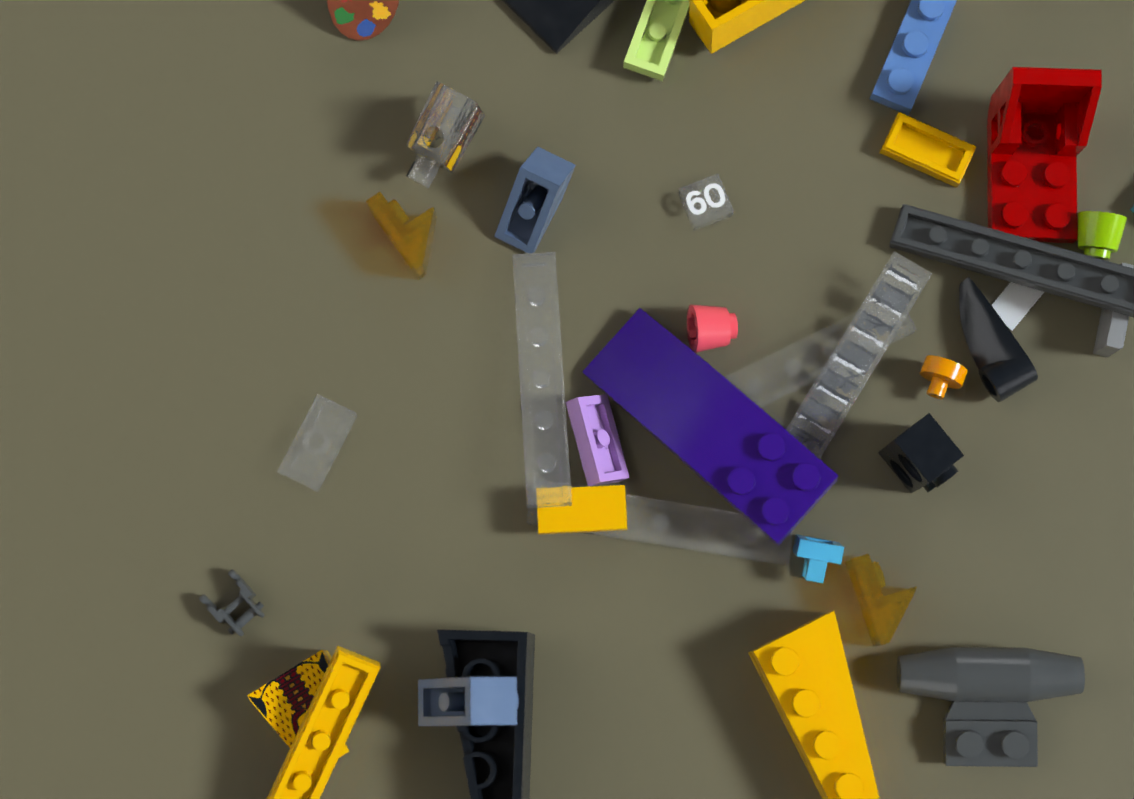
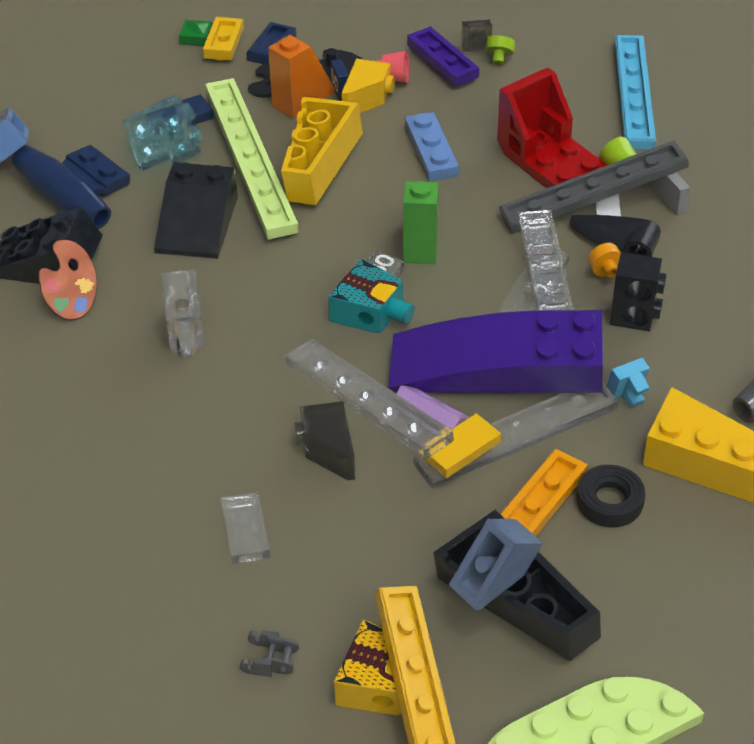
camera: 35 degrees left, 35 degrees down
(410, 240) = (205, 385): clear yellow slope -> none
(468, 396) = (327, 437): none -> clear smoke slope
(534, 199) = (274, 320): sand blue slope -> none
(610, 623) = (546, 491): none -> light orange plate
(652, 242) = (369, 299): none -> teal torso
(706, 670) = (610, 514): none -> black tyre
(710, 327) = (445, 311): coral hat -> none
(782, 182) = (420, 222): none -> bright green slope
(879, 612) = (695, 381): clear yellow slope -> none
(927, 149) = (486, 180): yellow tile -> none

